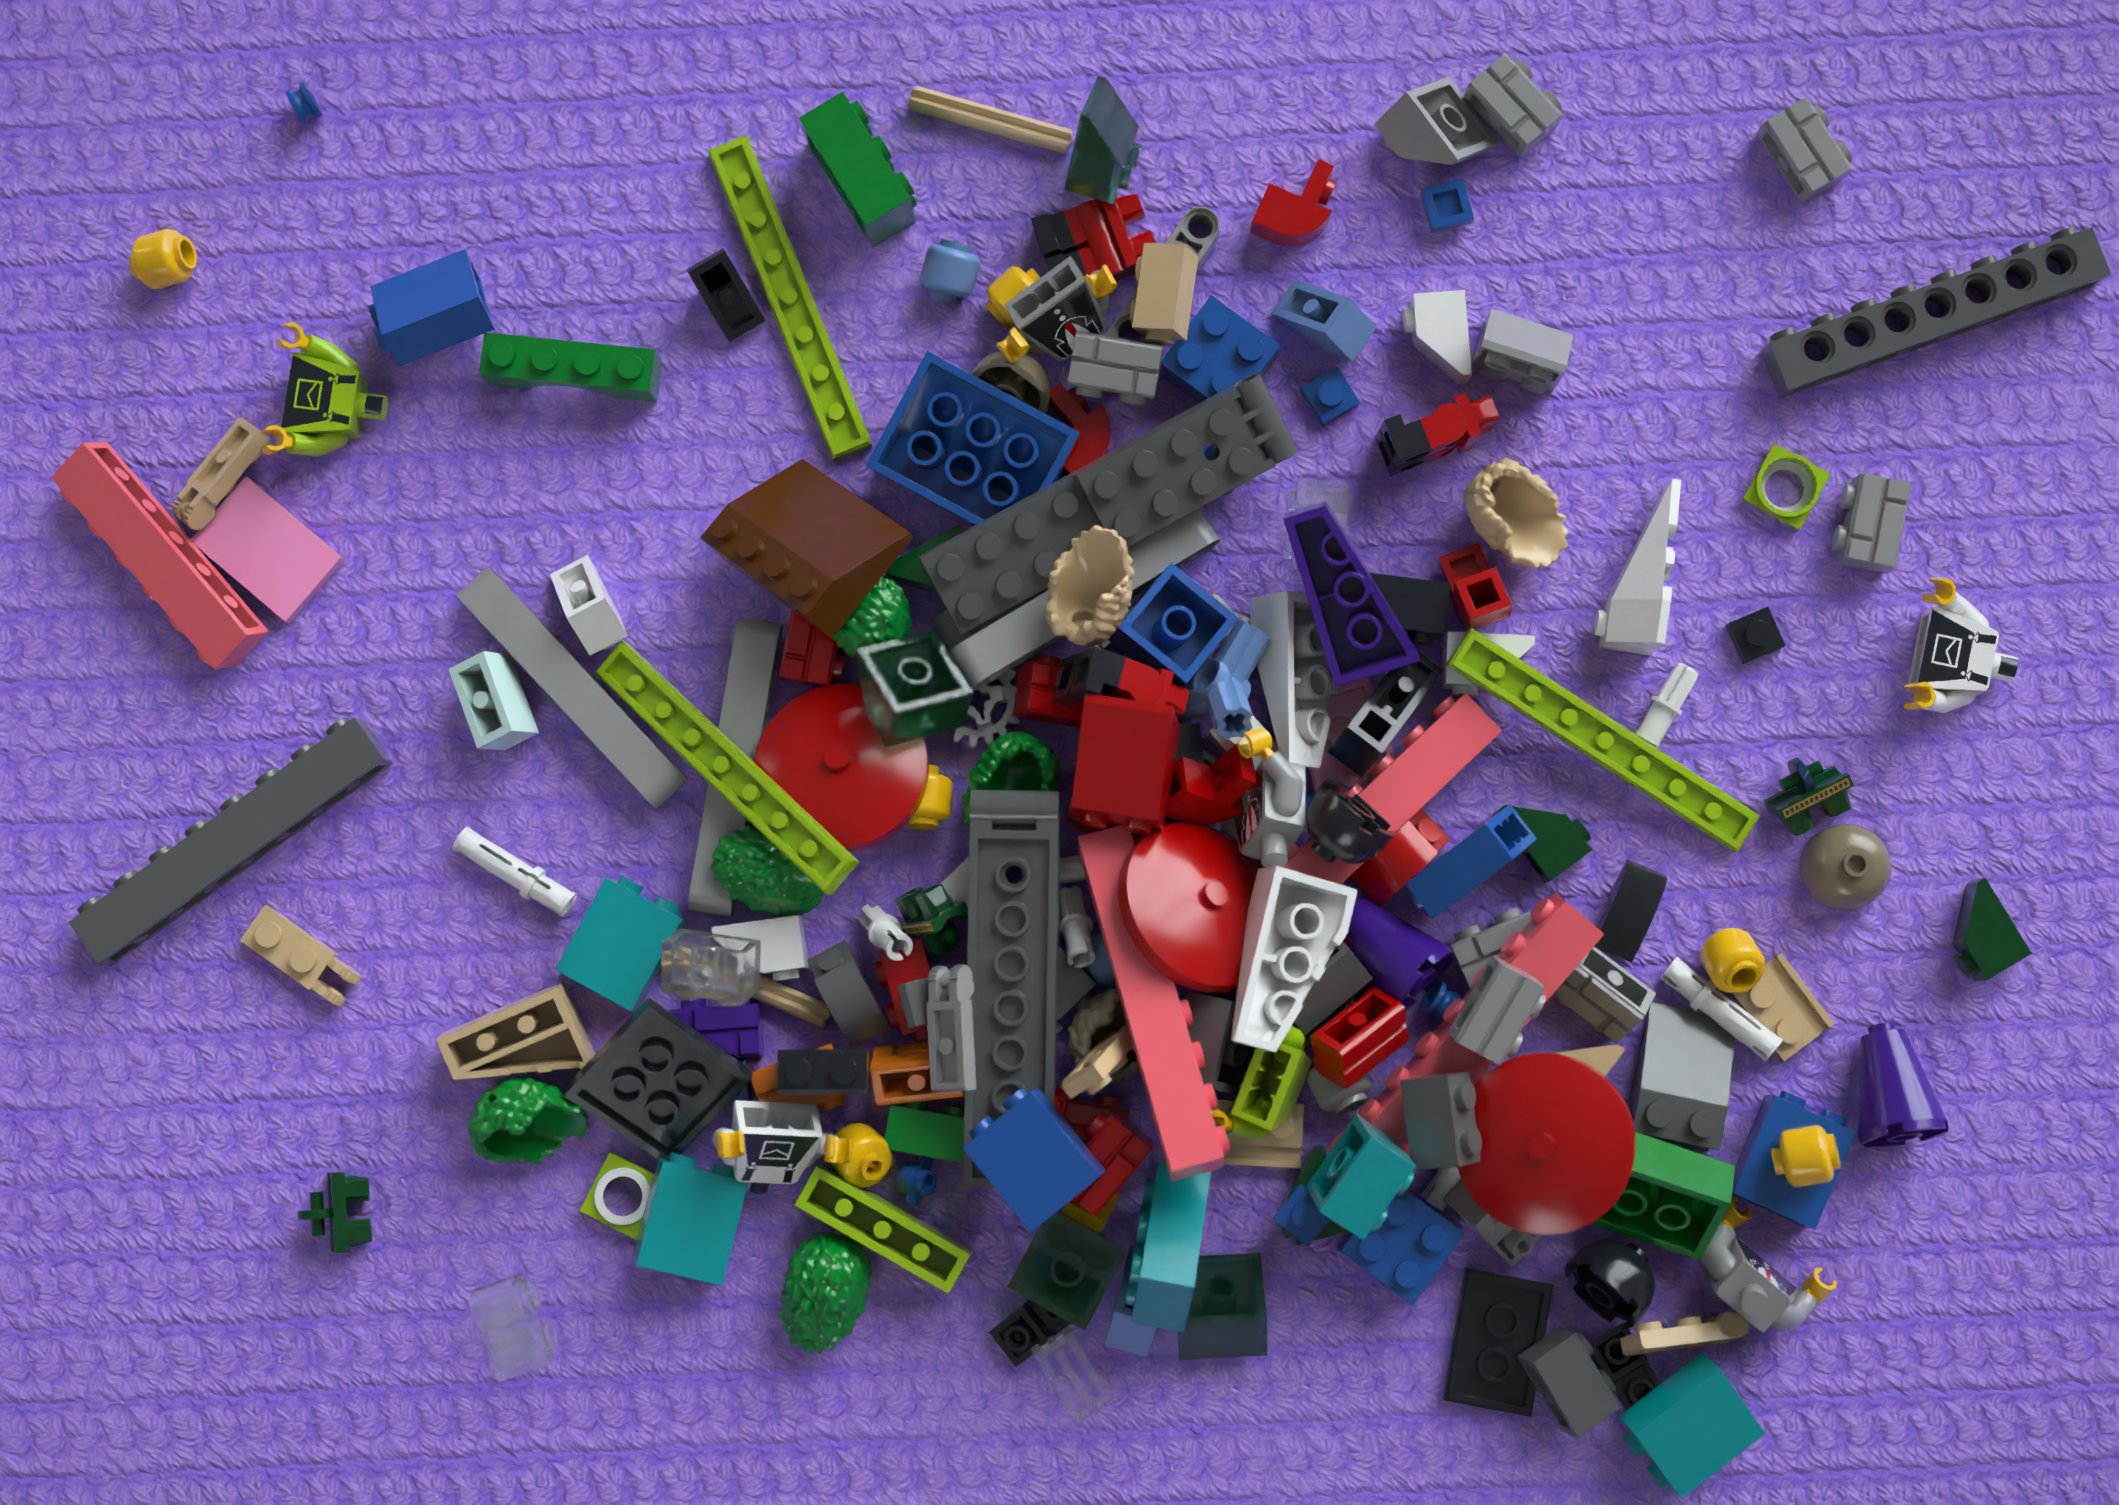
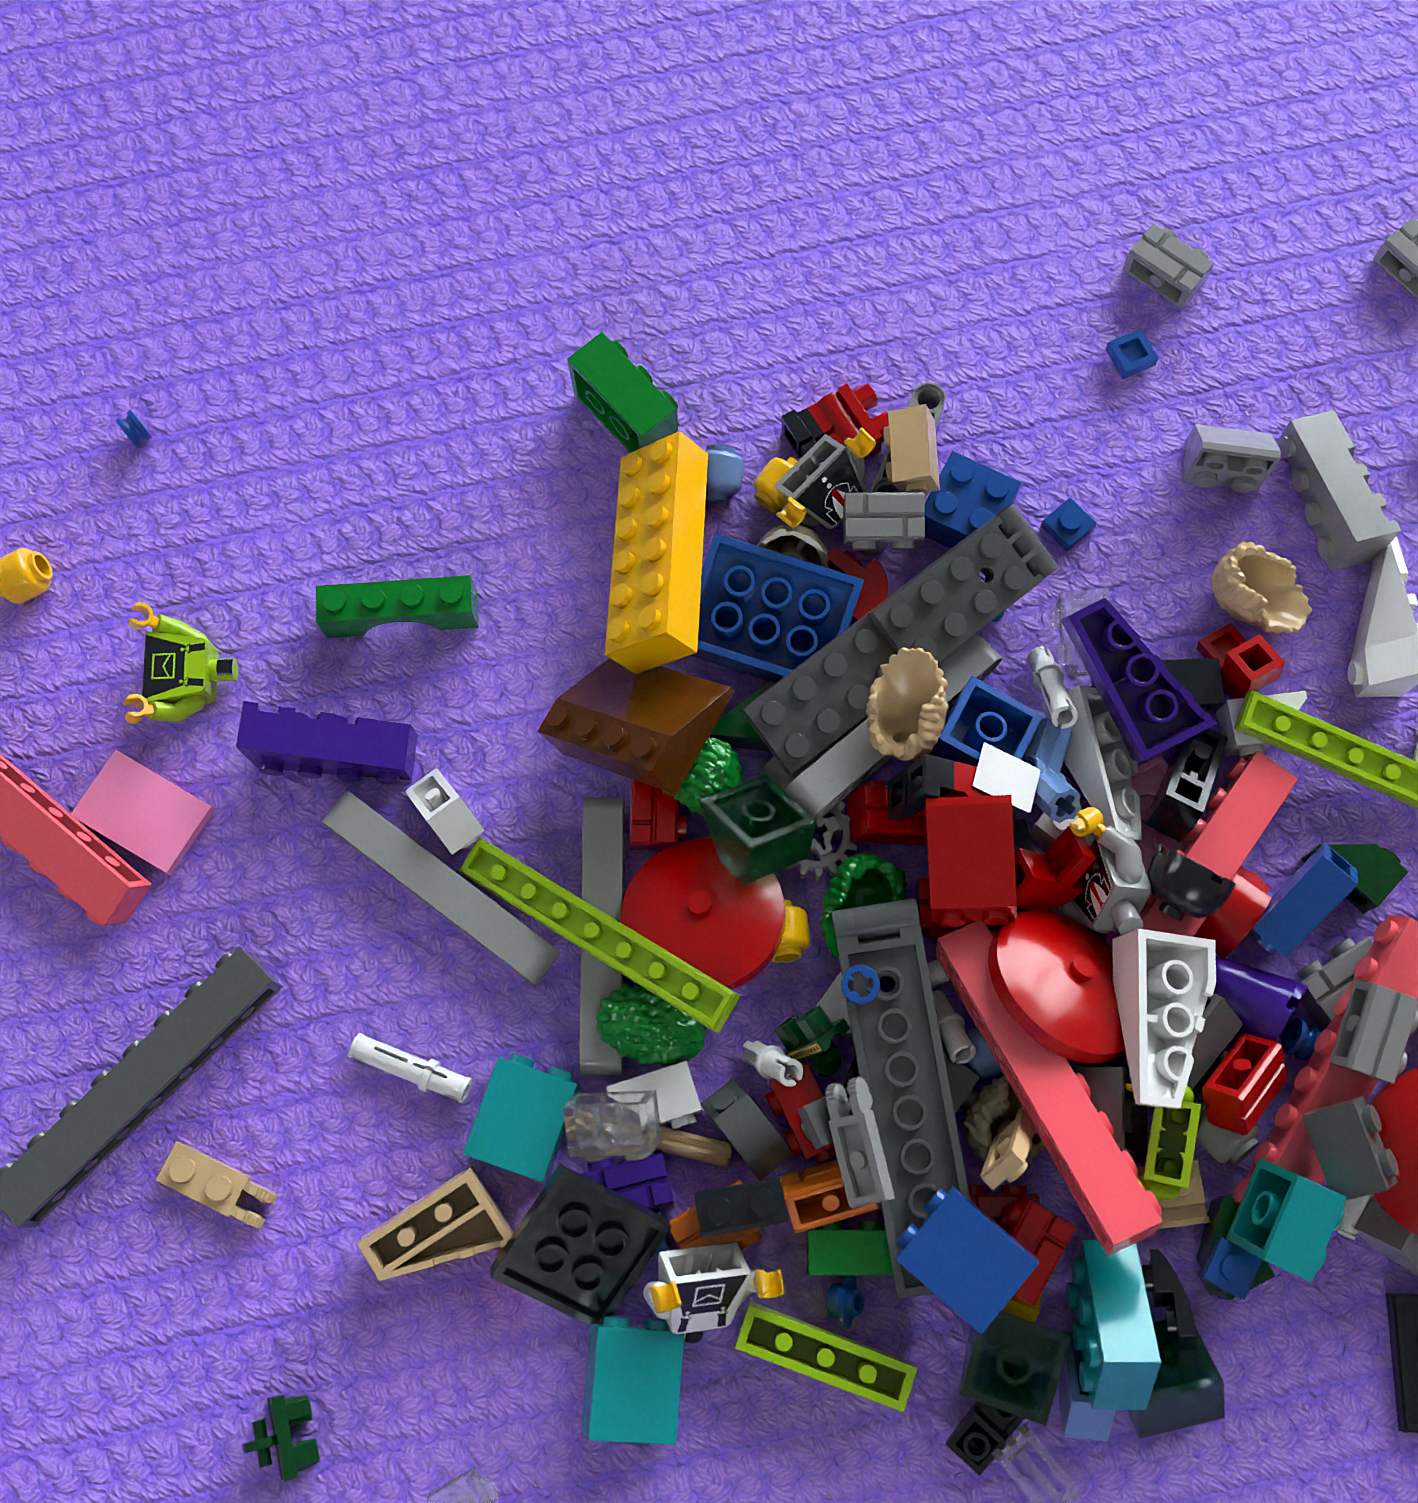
camera: 15 degrees left, 10 degrees down
(218, 474) = (90, 752): tan hinge -> none
(430, 308) = (264, 575): blue brick -> none
(474, 513) = (326, 745): none -> dark purple wedge
(493, 701) = (368, 910): light aqua brick -> none
(523, 1121) = (454, 1311): green piece -> none
(594, 1206) = (535, 1384): piece -> none
(725, 295) = (525, 522): black slope -> none
(790, 298) = (558, 485): lime tile -> none
(824, 1291) = (777, 1432): green piece -> none
(861, 361) = (657, 554): none -> yellow brick
(869, 1156) = (799, 1286): yellow head -> none
(975, 883) = (866, 973): none -> blue bush
(990, 119) = (728, 349): tan axle -> none
(1103, 146) = (834, 347): slope -> none
(1180, 682) = (1006, 775): none -> white sticker
(1236, 1224) = (1169, 1293): none -> black slope
(1261, 576) = (1049, 678): none -> white pin
(1296, 219) = (1004, 383): red brick -> none
(1325, 319) = (1051, 459): medium blue slope -> none
(1406, 1246) = (1339, 1292): blue brick -> none
(1435, 125) = (1104, 290): light grey slope -> none
(1437, 435) = (1156, 545): hips -> none
(1441, 331) = (1154, 454): white slope -> none
(1629, 410) = (1336, 491): none -> light grey wedge

